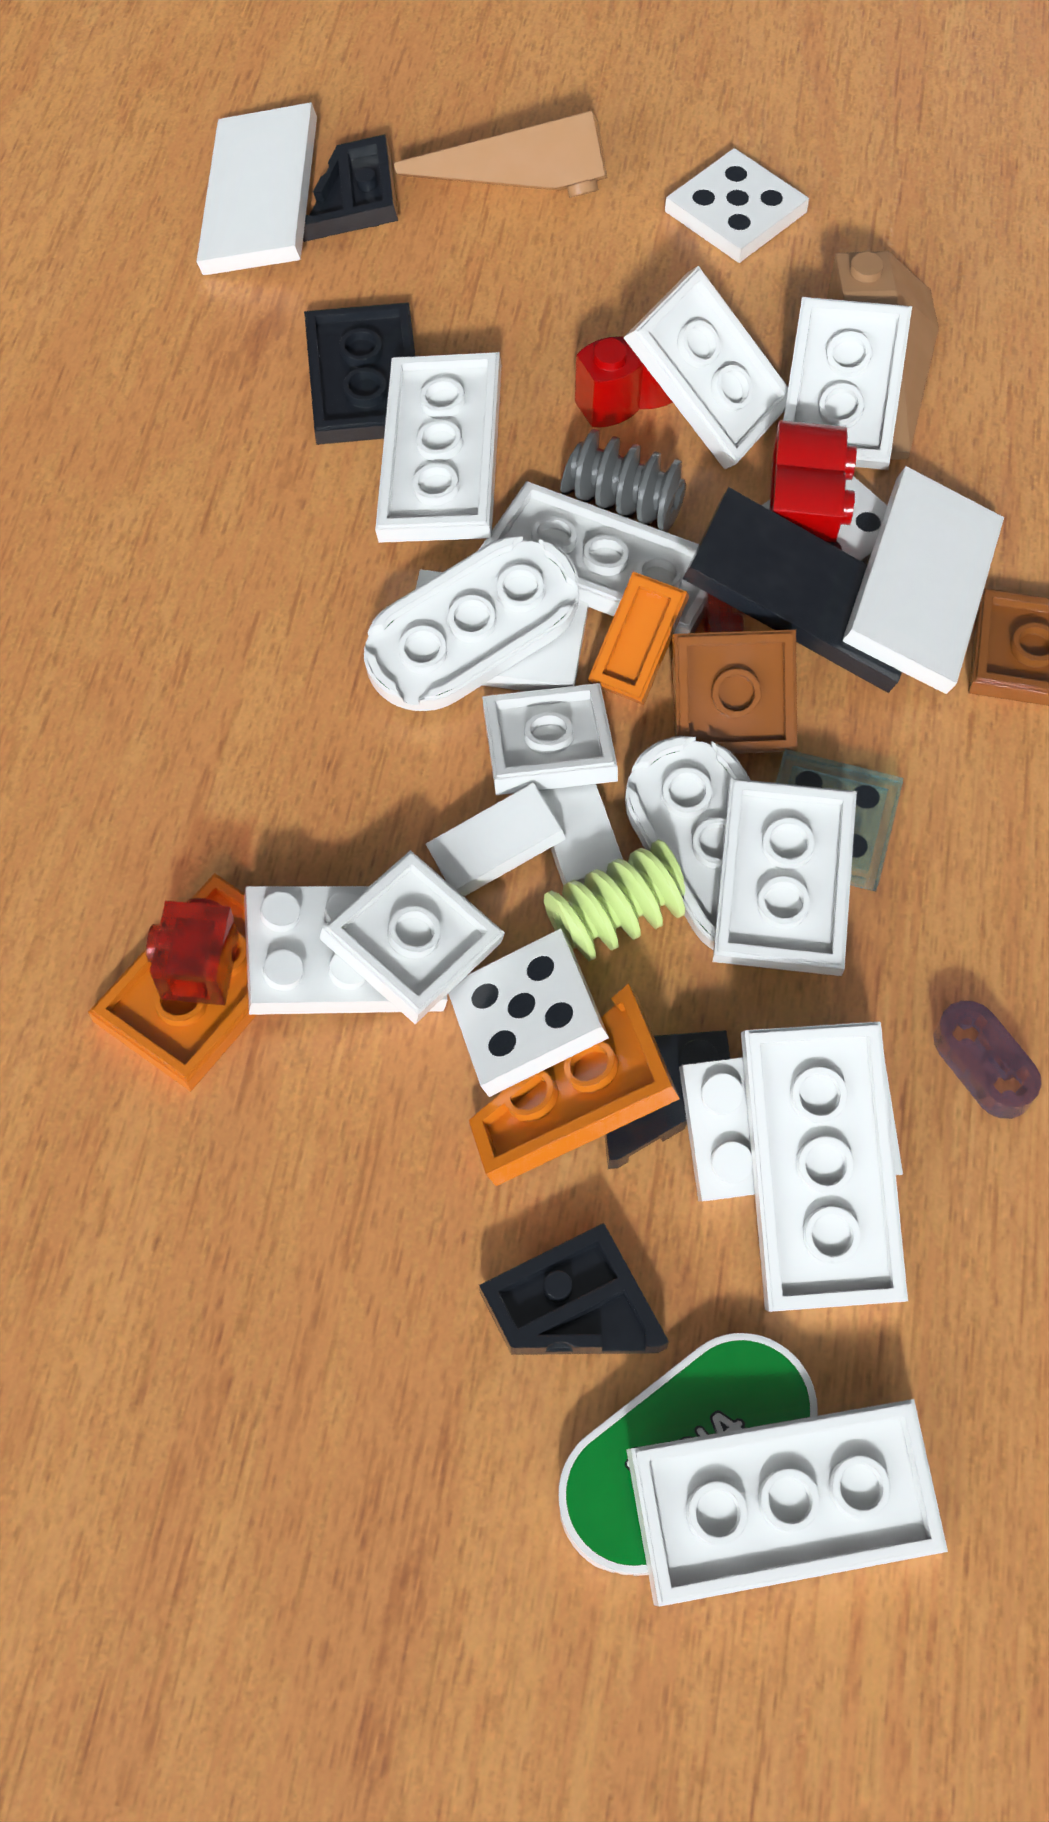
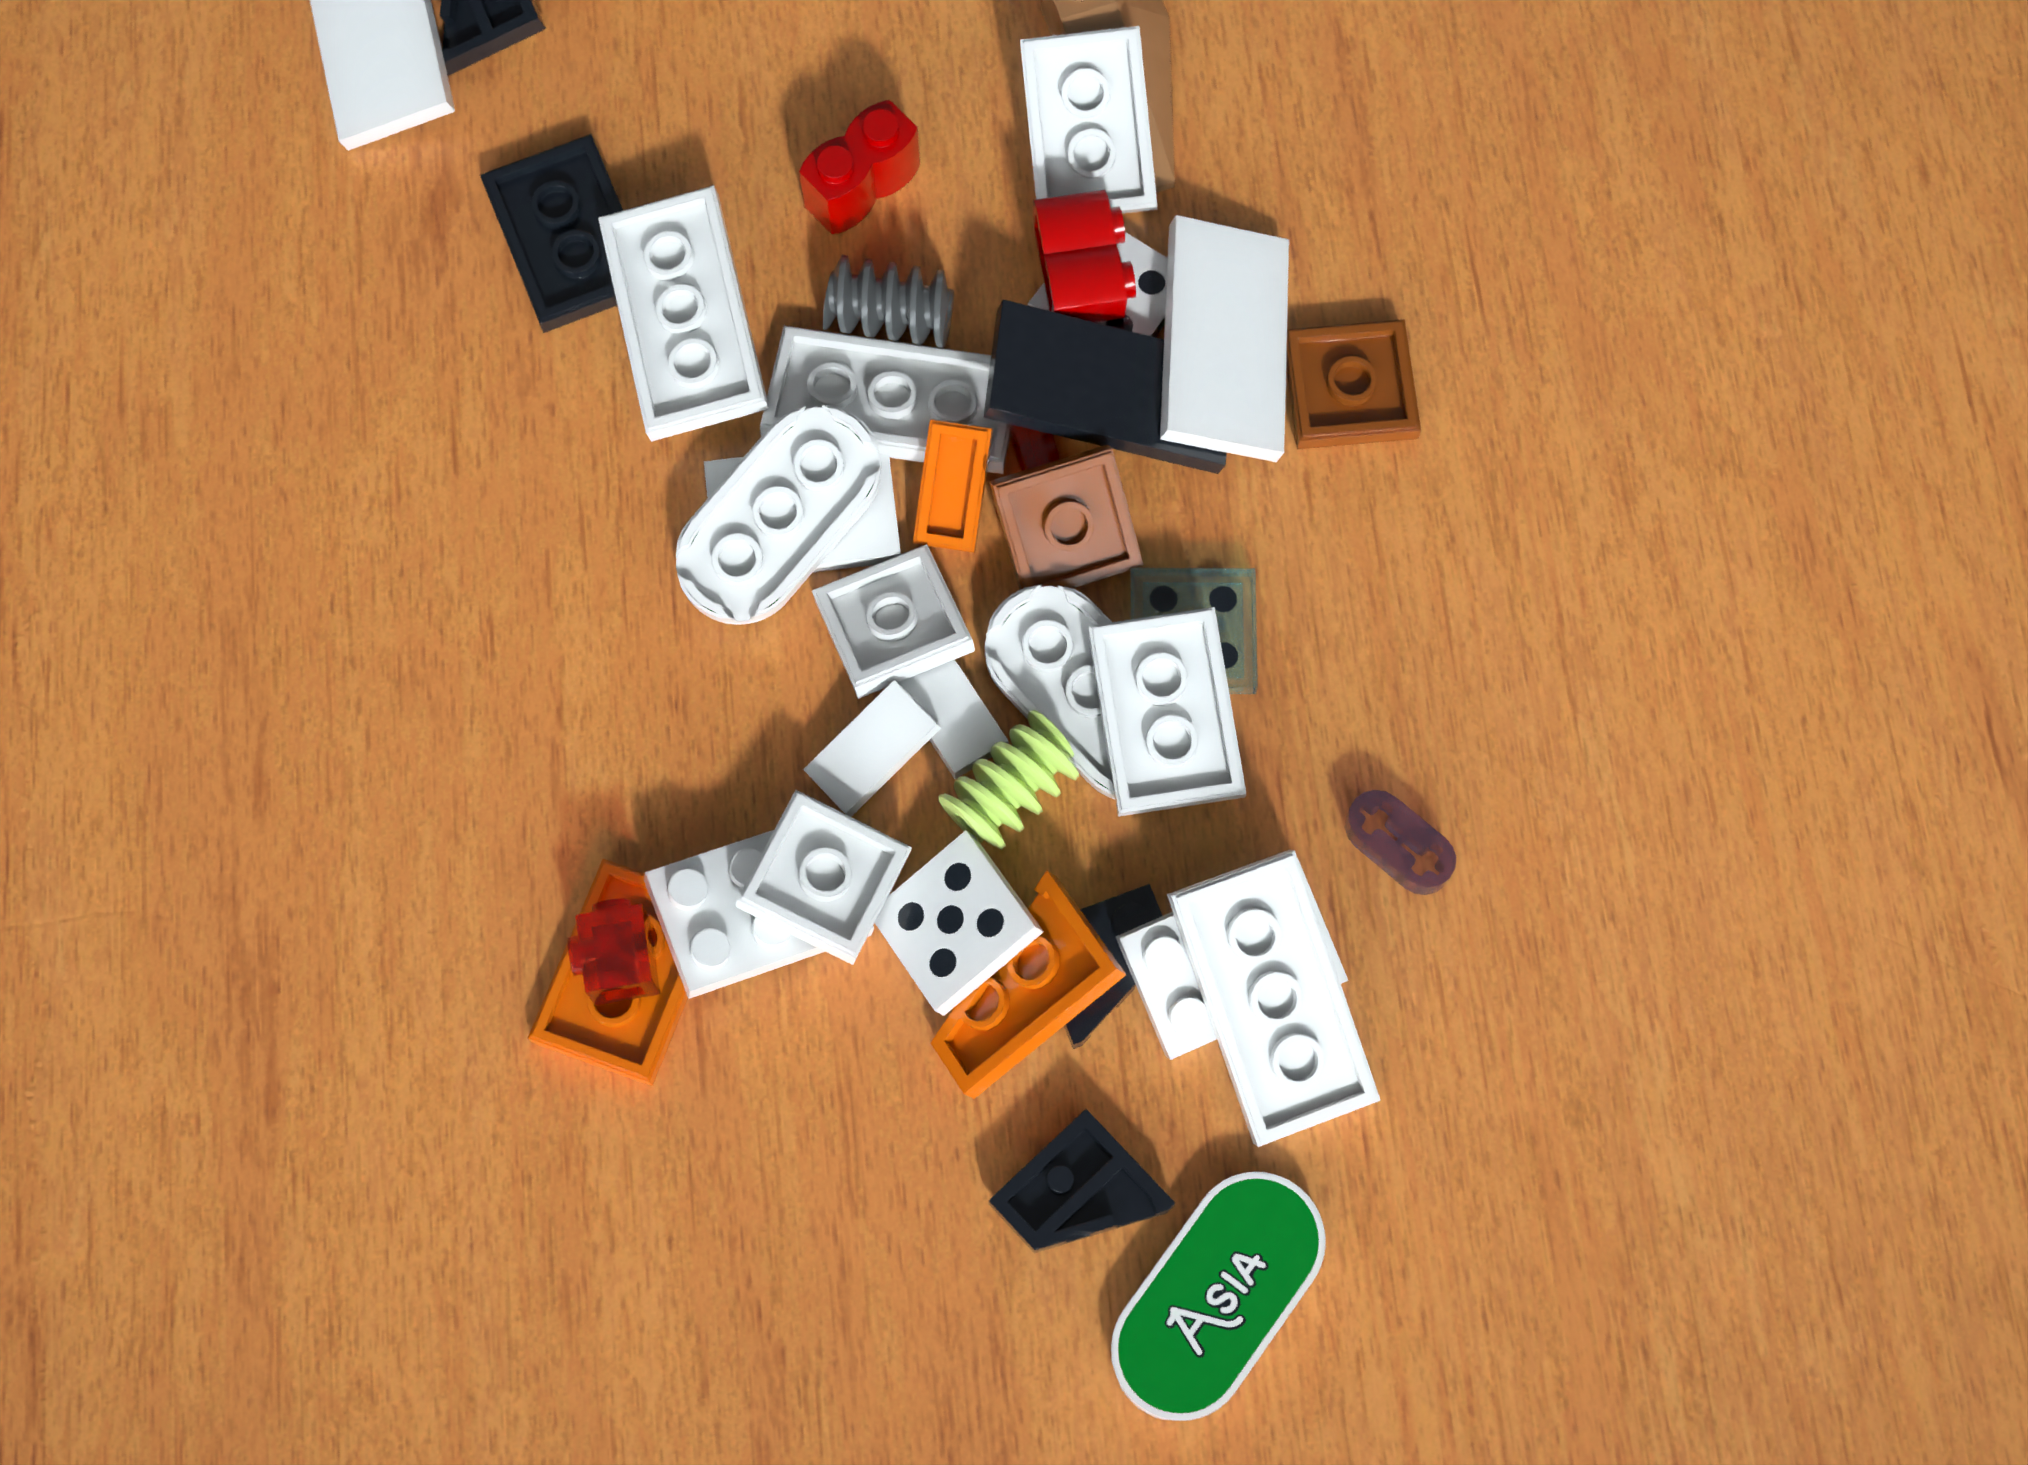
camera: 15 degrees left, 10 degrees up
(710, 367) = (943, 147): white tile -> none
(785, 1502) = (1314, 1316): white tile -> none

